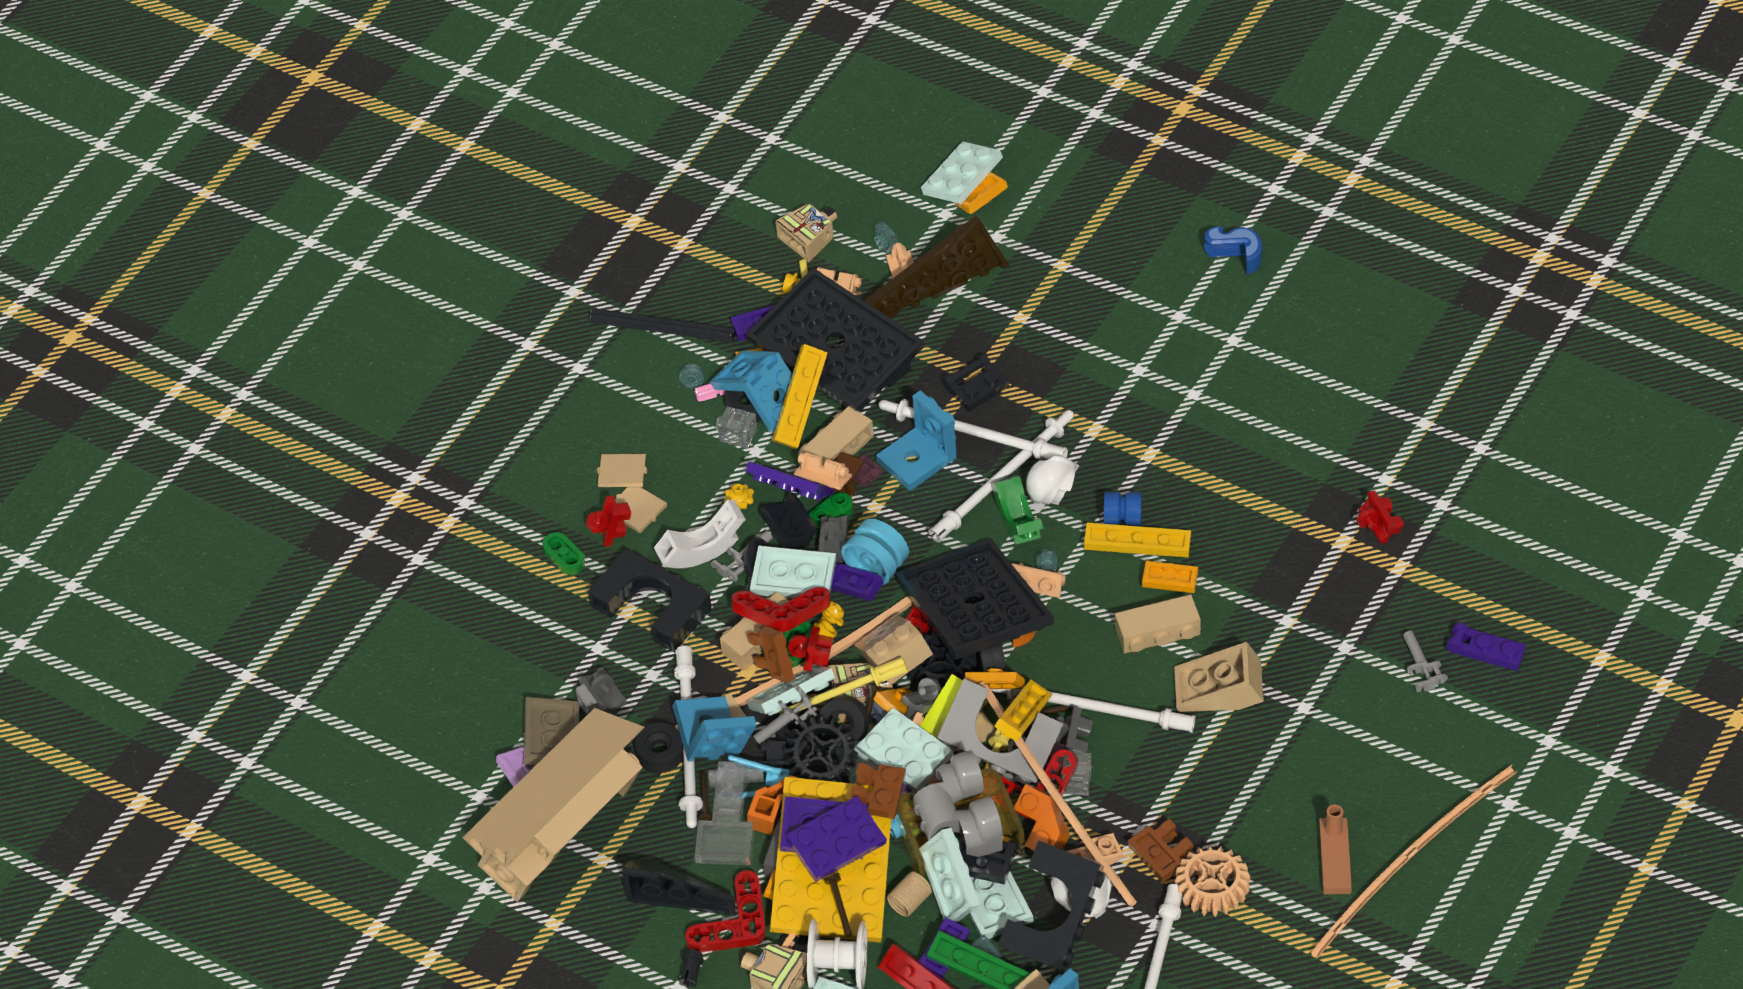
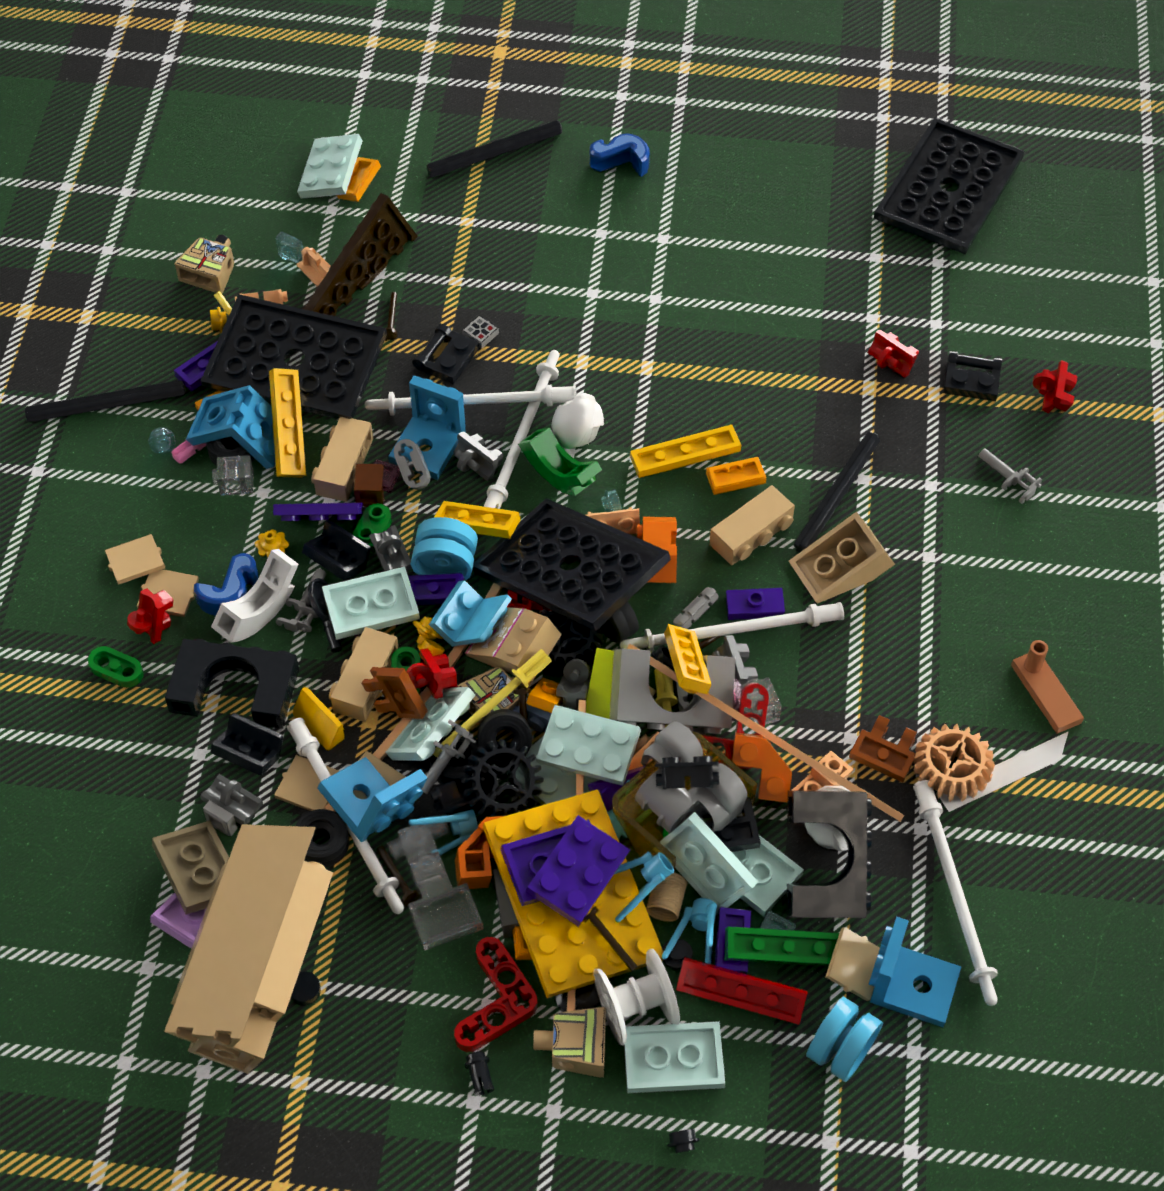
camera: 30 degrees left, 5 degrees up
(590, 856) = (306, 989): none -> black tile
(637, 654) = (248, 745): none -> black bracket
(661, 701) = (301, 785): none -> tan piece
(662, 886) = (402, 992): black wedge -> none
(695, 515) = (240, 572): none -> blue animal
(704, 655) = (318, 719): none -> yellow slope
(781, 617) = (381, 652): red beam -> none
(830, 474) = (361, 489): light nougat hinge -> none
(865, 611) = (467, 616): none -> medium azure bracket
(886, 791) = (598, 796): dark orange plate -> none
(890, 469) = (417, 462): none -> light grey beam
(894, 936) = (680, 951): none -> black plate
(902, 865) = (655, 871): none -> medium azure plant
(922, 536) = (482, 519): none -> yellow plate
(928, 922) = (703, 917): none -> medium azure plant
(935, 346) = (391, 332): none -> dark brown piece
(948, 481) = (474, 455): none -> dark grey hips
(966, 794) = (674, 772): none -> black hinge
(997, 679) = (636, 636): light orange plate -> none
(1016, 371) = (481, 331): none -> light grey tile
(1067, 606) = (661, 533): none -> orange brick
(1068, 677) = (696, 608): none -> light grey axle
(1122, 508) = (653, 426): blue wheel -> none
(1123, 203) = (494, 148): none -> black axle
(1123, 691) = (754, 603): none -> dark purple plate
(1255, 620) = (837, 491): none -> black axle
(1267, 908) = (1016, 768): none -> white sticker
(1407, 855) = (1109, 674): light nougat piece -> none
(1440, 569) = (970, 382): none -> black plate
(1486, 647) = (1057, 440): dark purple plate -> none
(1522, 593) = (1052, 386): none -> red hips
(1553, 346) = (943, 155): none -> black plate

